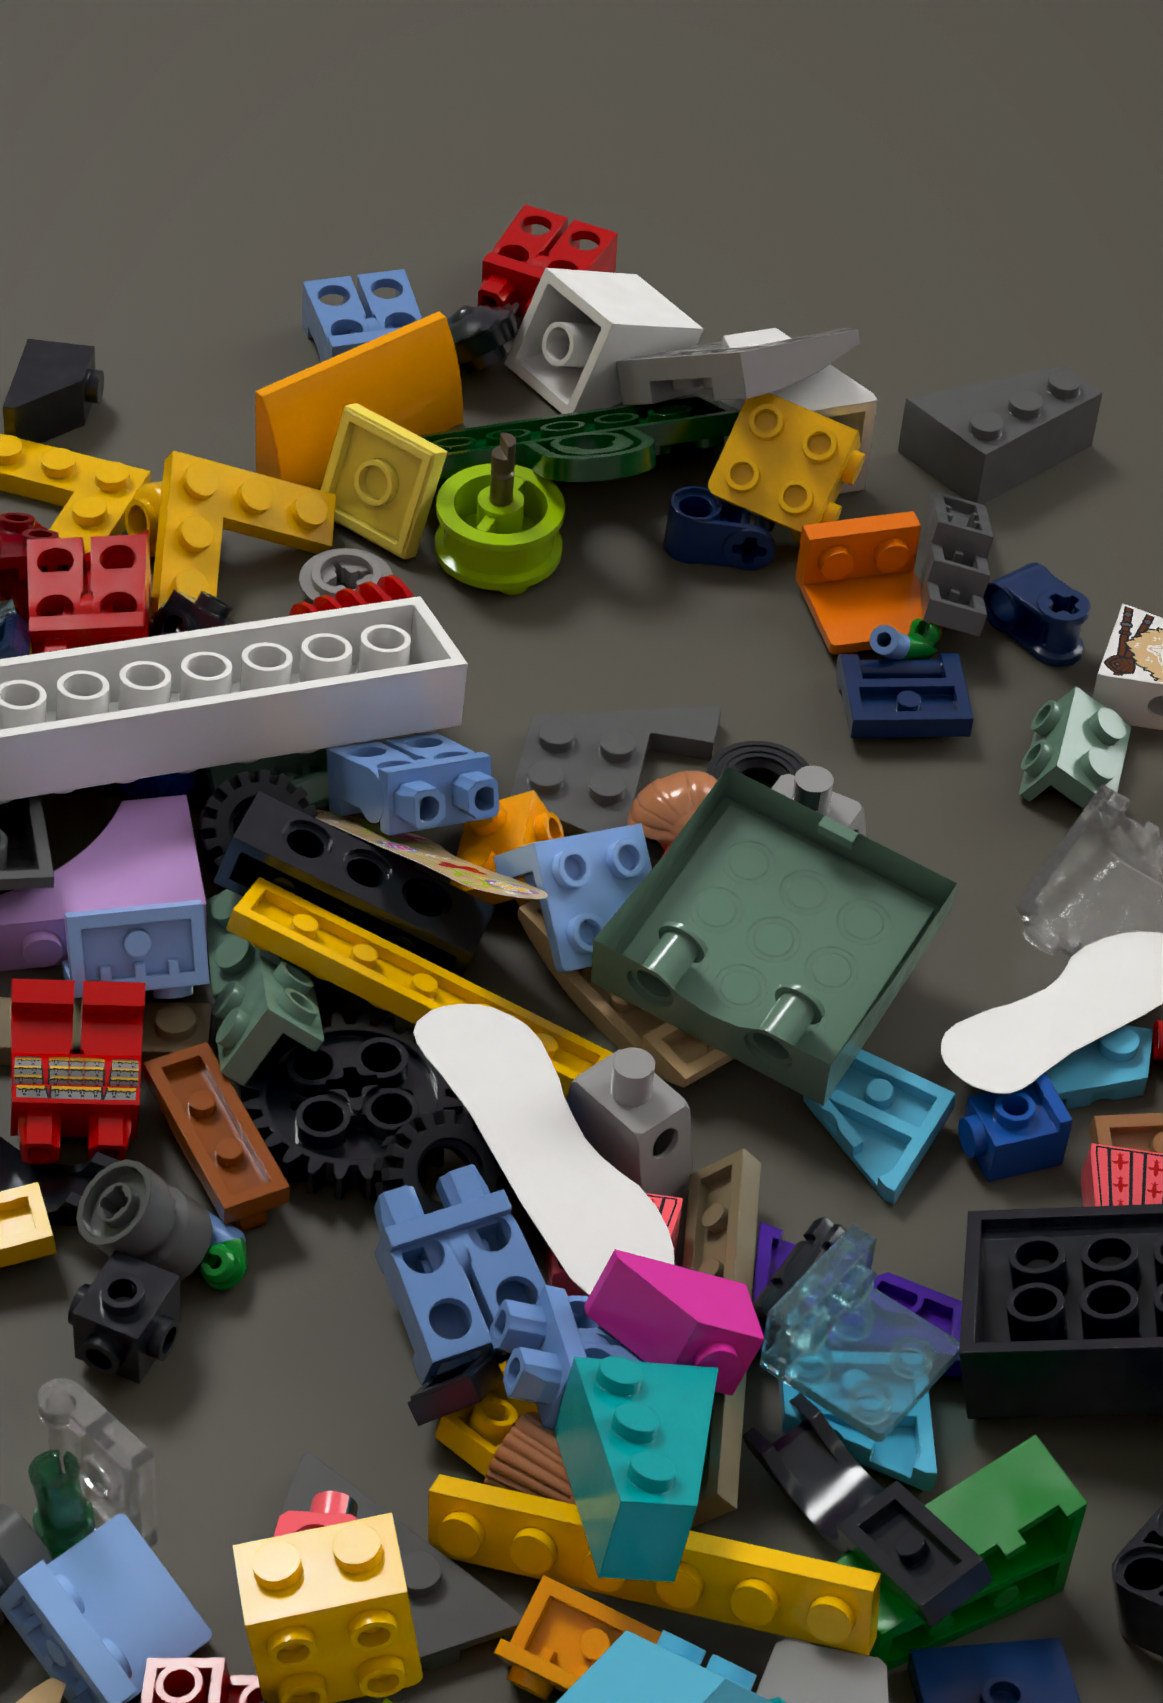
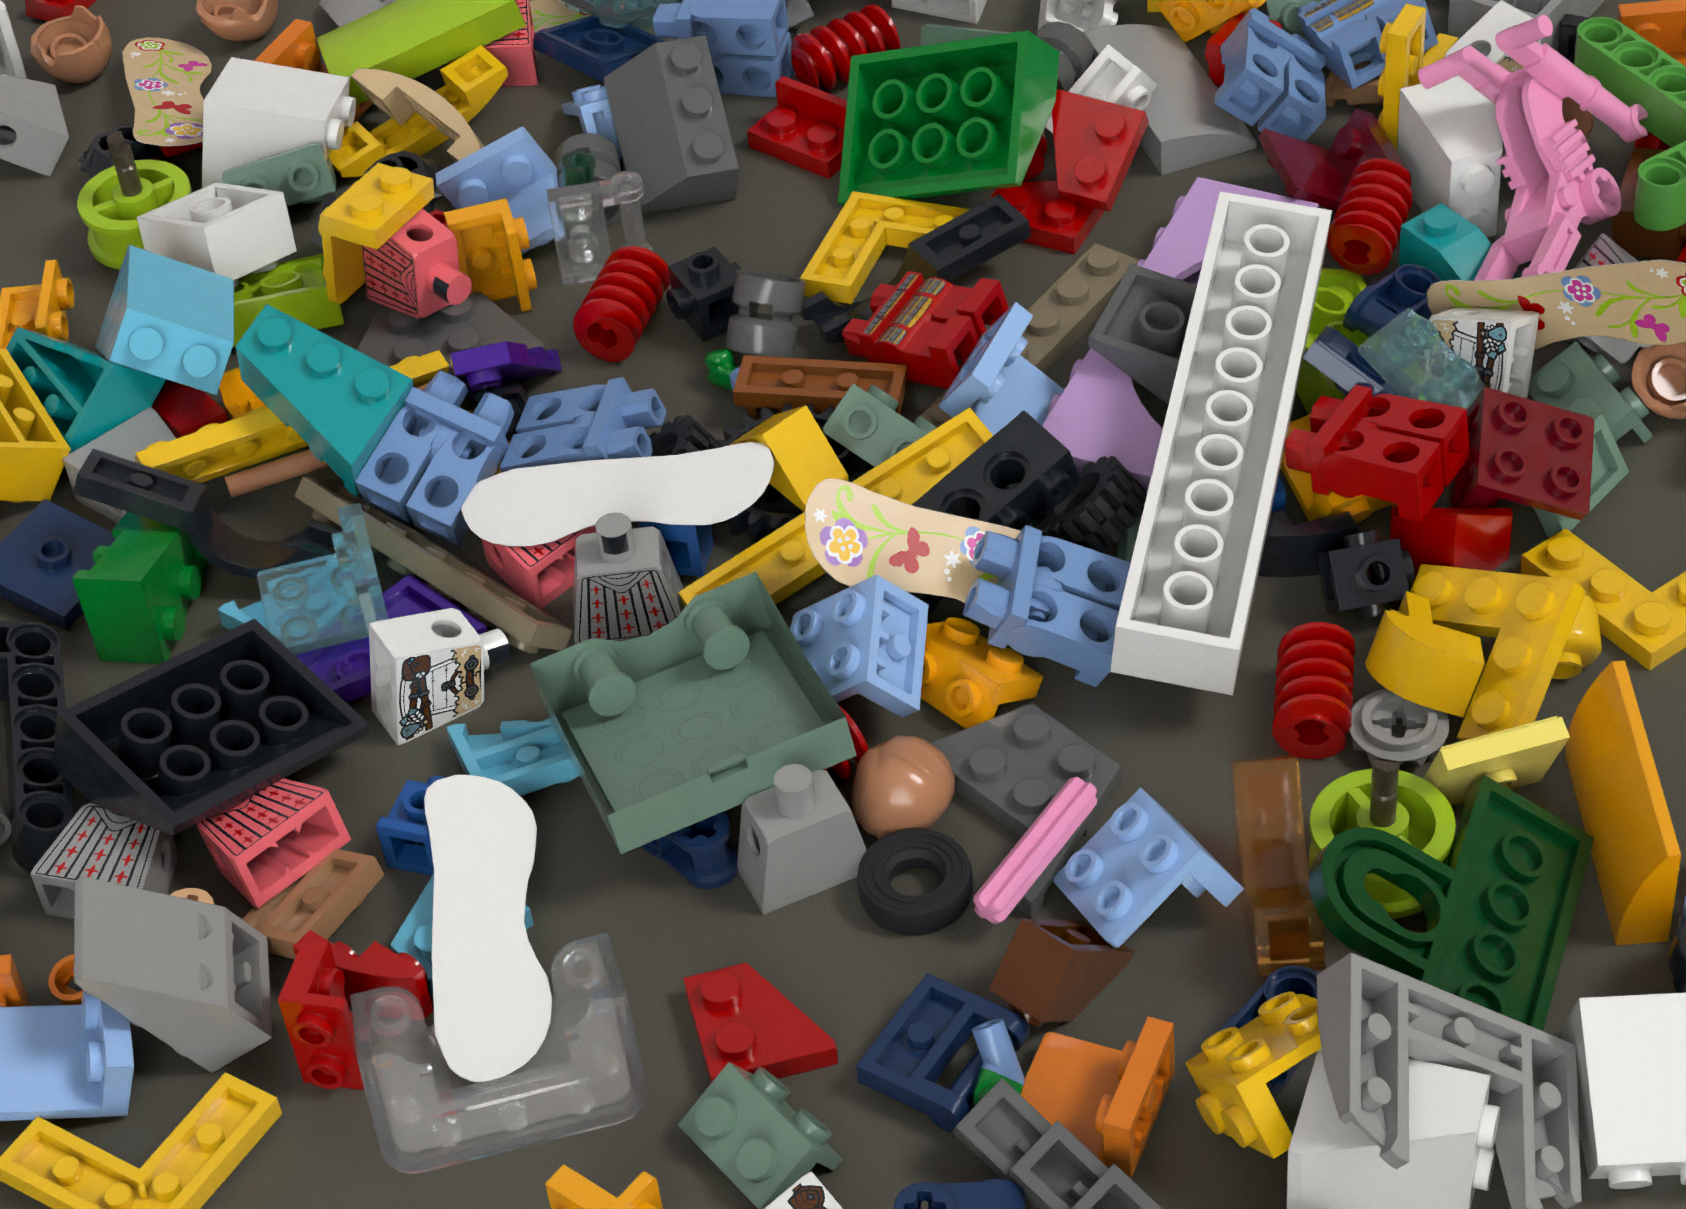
camera: 135 degrees right, 0 degrees up
(195, 1400) = (621, 303): none -> red piece
(205, 1533) = (491, 251): none -> light orange bracket
(281, 567) = (1425, 659): none -> yellow brick
(370, 1066) = (799, 453): none -> yellow slope
(420, 1409) = (501, 364): none -> dark purple wing
(599, 569) = (1274, 865): none -> clear orange arch
(649, 636) = (1136, 867): none -> light blue bracket
(677, 1316) = (407, 475): dark pink slope -> none
(678, 708) = (1035, 850): none -> bright pink axle
(774, 653) = (1056, 969): none -> reddish brown slope
(805, 1254) = (407, 588): black axle -> none
(869, 1188) = (429, 670): none -> white torso
(989, 820) = (753, 1025): none -> red wing

